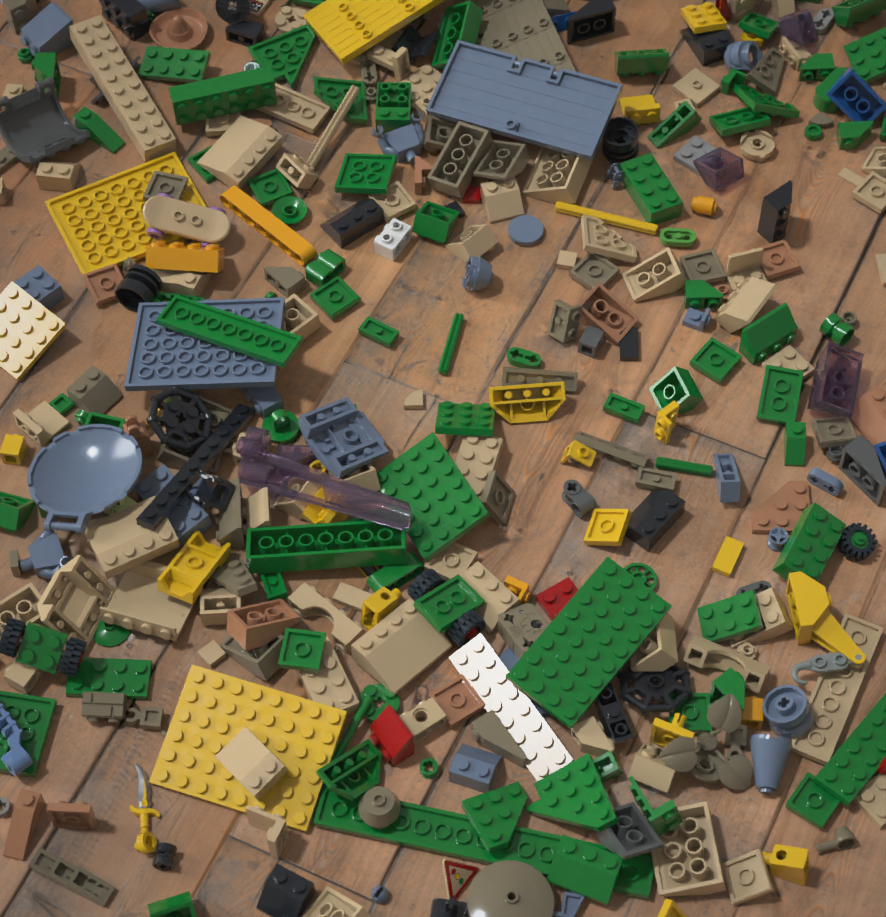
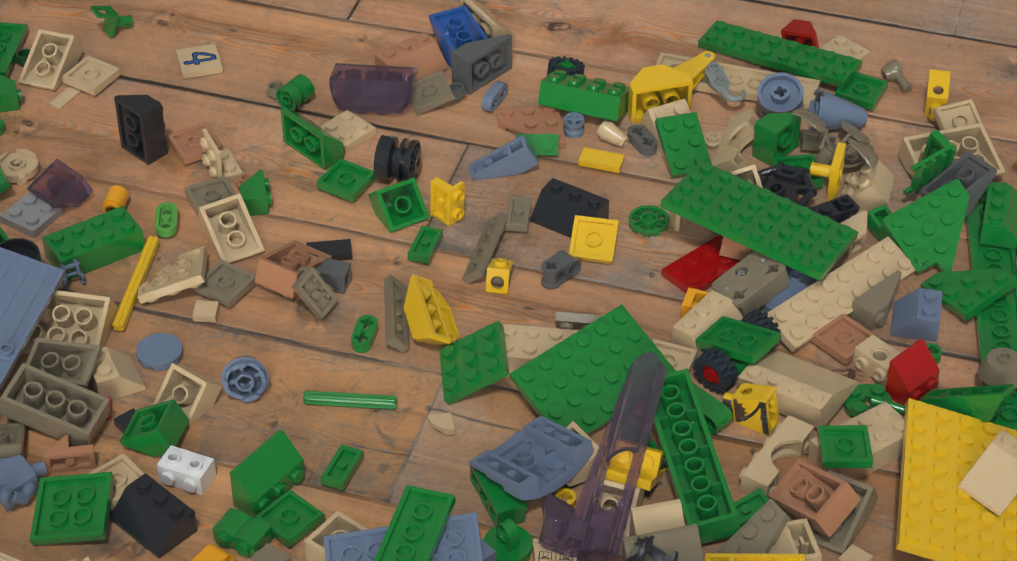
camera: 100 degrees left, 15 degrees down
(350, 596) = (739, 441): tan tile -> none
(371, 281) = (266, 474): none -> green slope
(684, 466) = (494, 195): green axle -> none
(696, 319) = (288, 197): sand blue bracket -> none
(726, 391) = (396, 159): none -> black wheel
(744, 303) = (272, 150): tan slope -> none
(749, 505) = (543, 143): none -> green plate
(761, 568) = (611, 133): none -> tan cone
(779, 394) = (381, 121): green plate -> none
(794, 444) = (450, 117): green slope -> none

